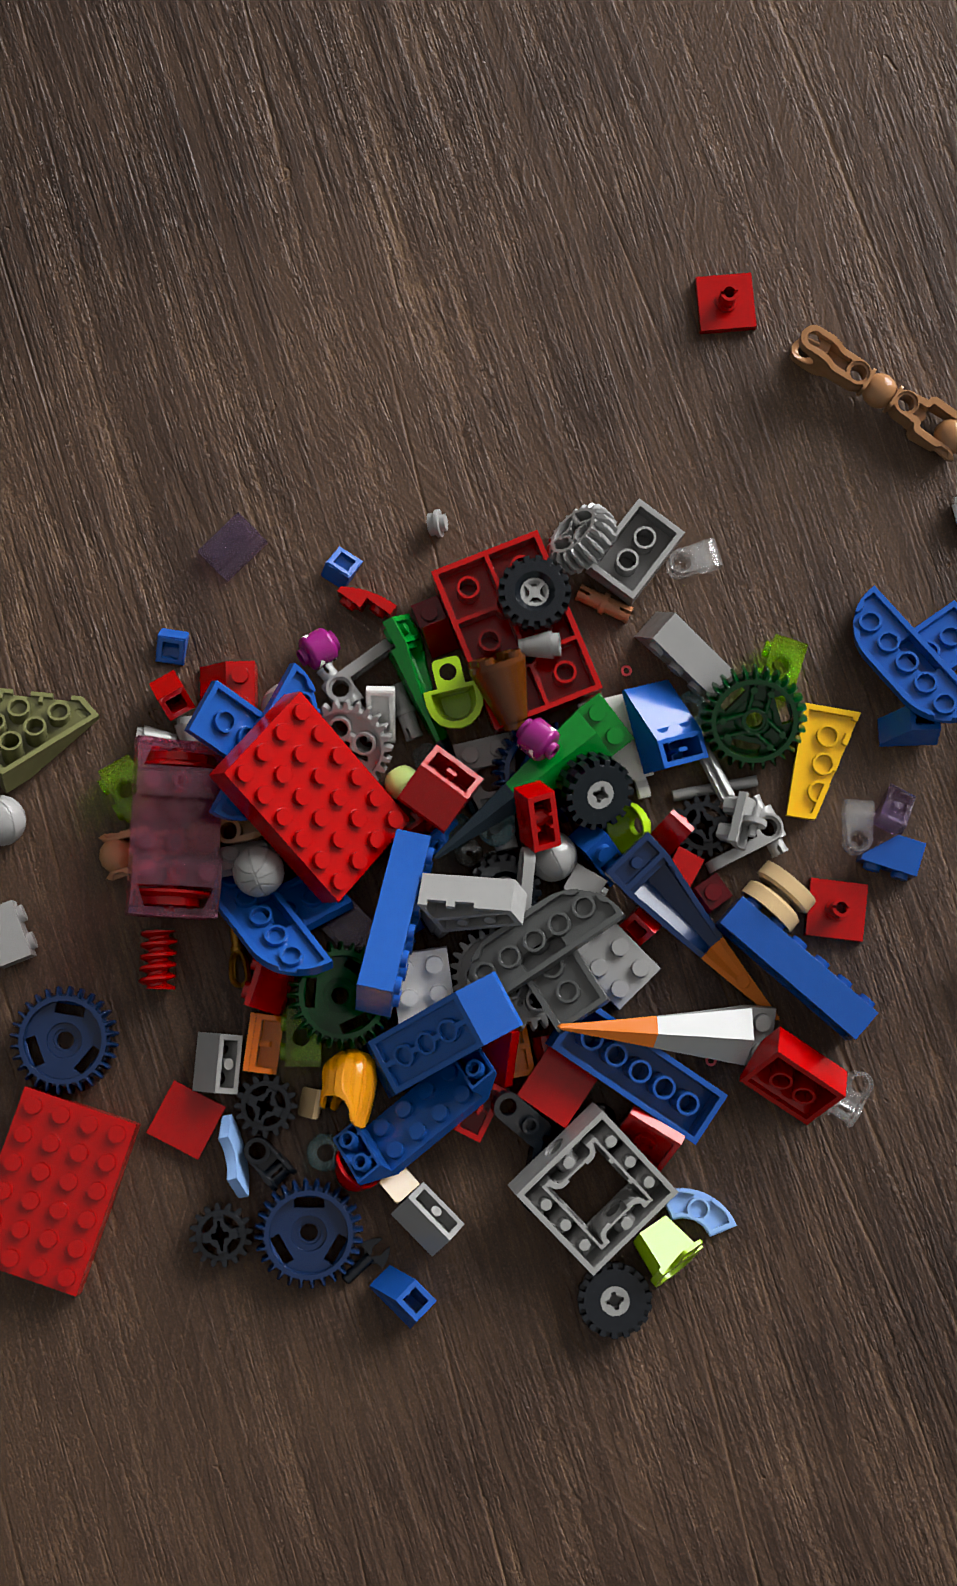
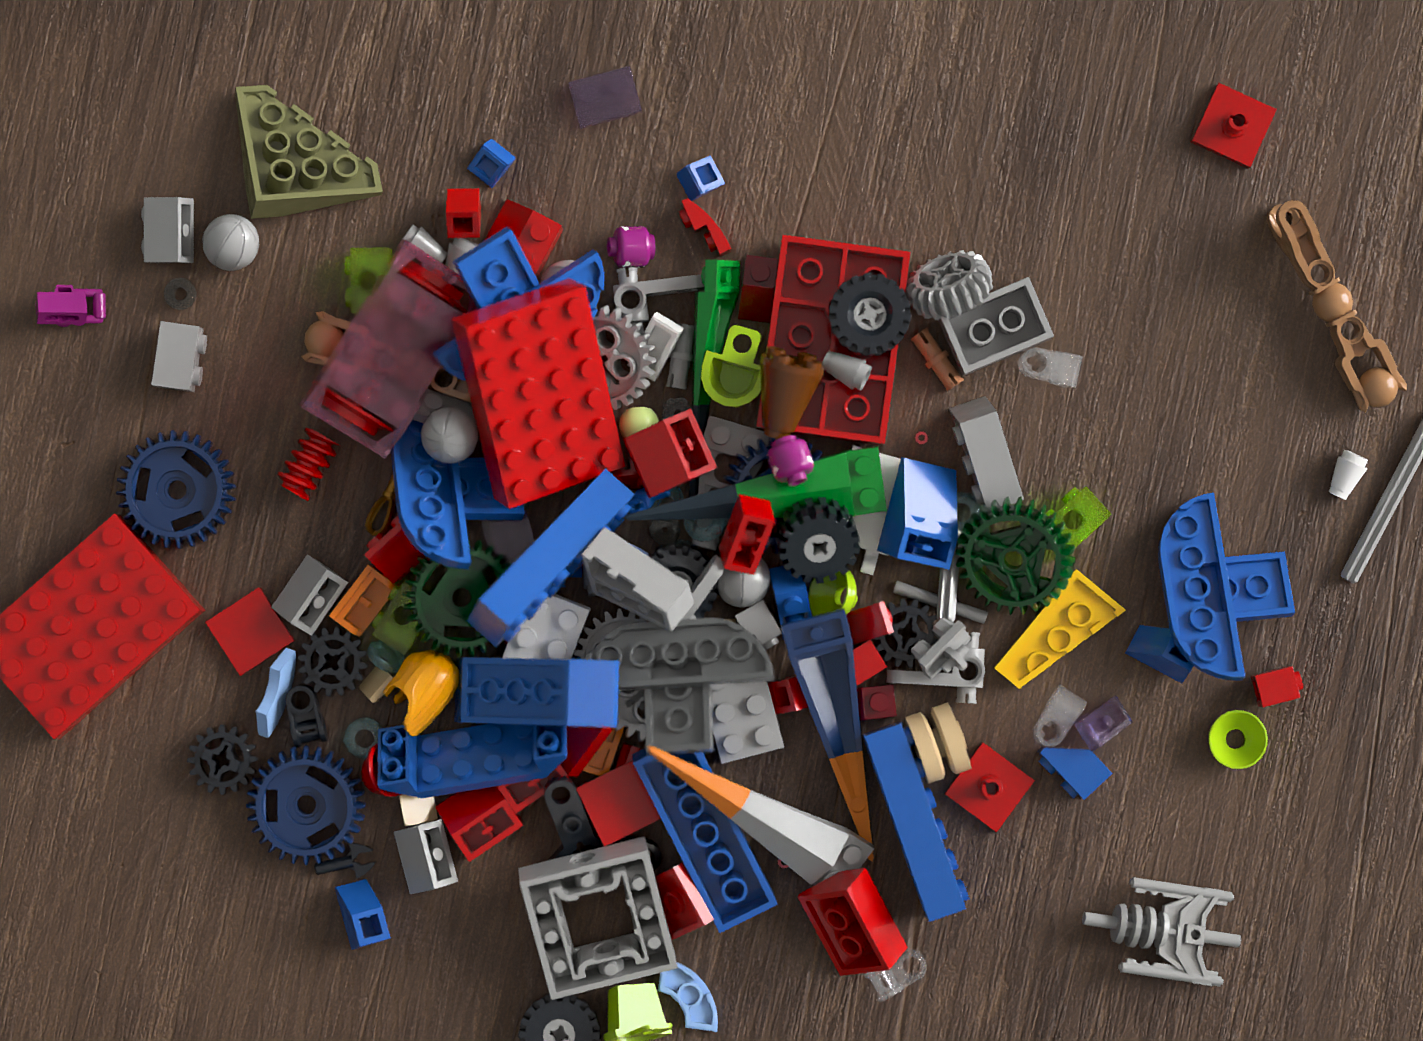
camera: 35 degrees right, 5 degrees up
(298, 1075) = (380, 649): none -> clear light blue piece
(437, 523) = (818, 187): light grey plate -> none
(453, 1164) = (478, 819): none -> red slope

